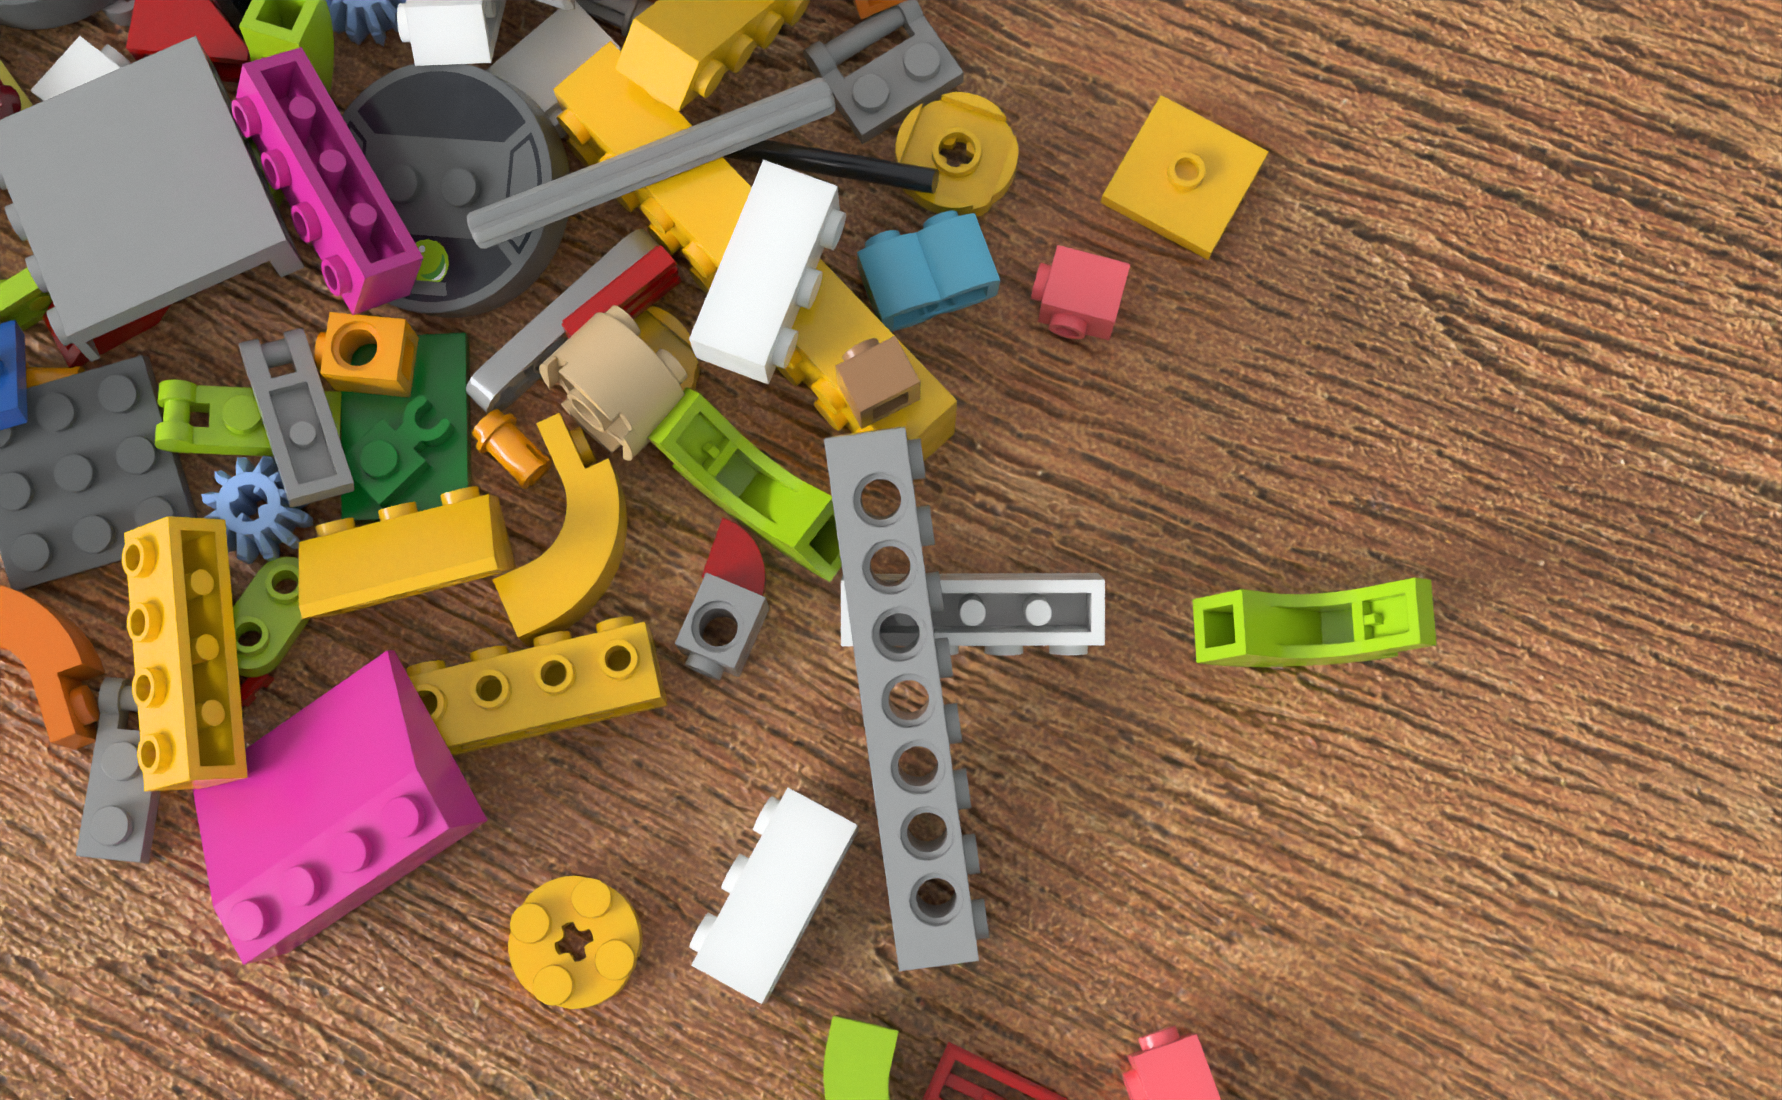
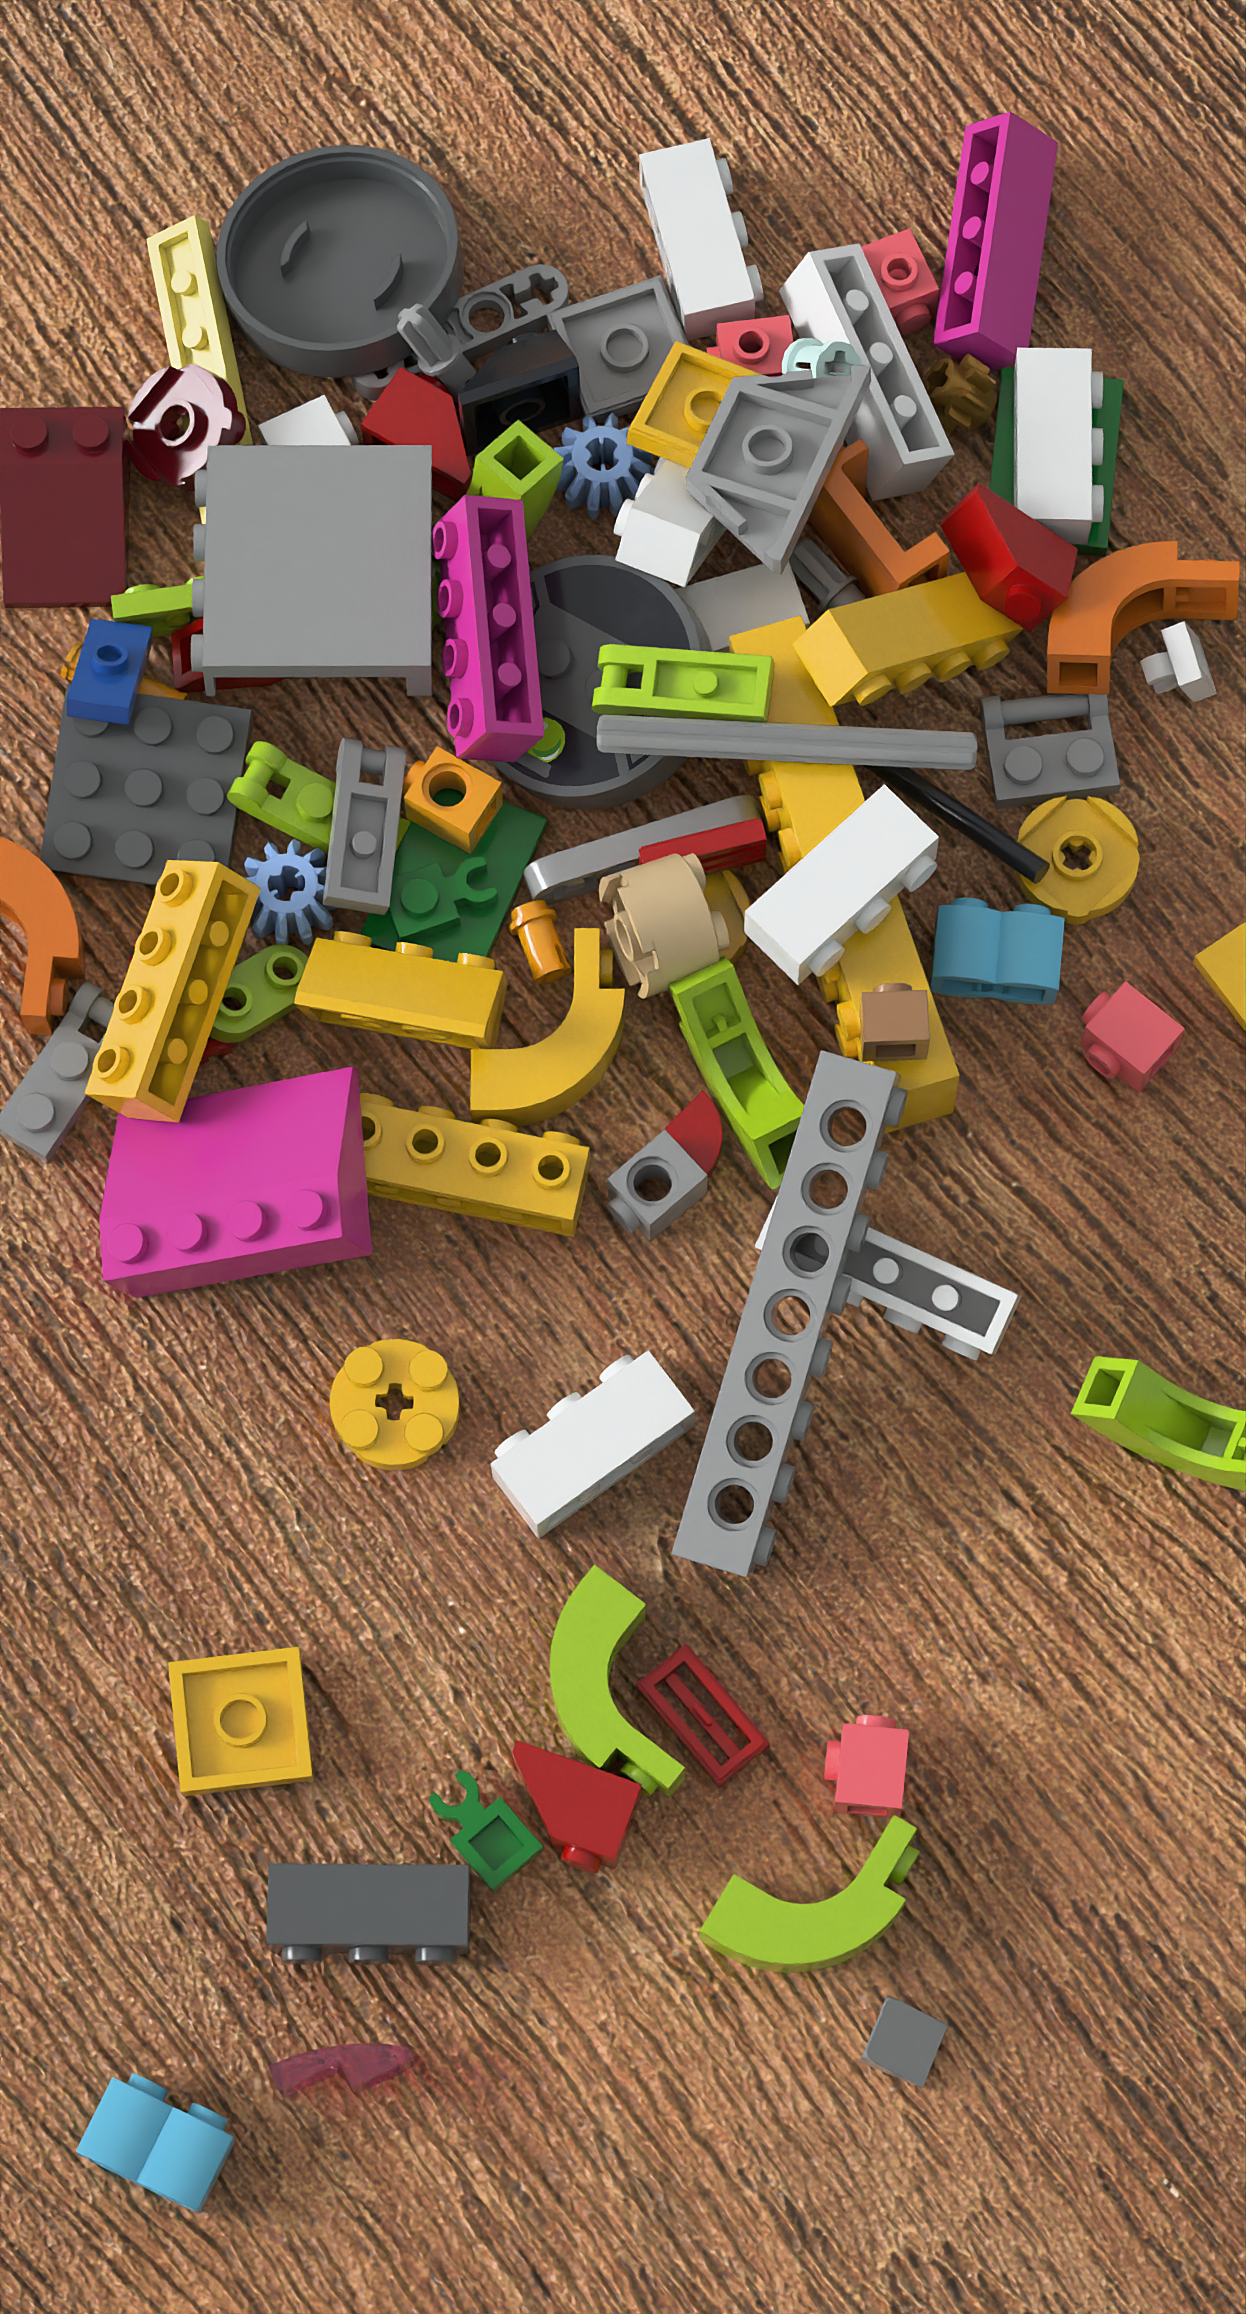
camera: 25 degrees right, 5 degrees down
(531, 150) = (684, 684): none -> lime plate

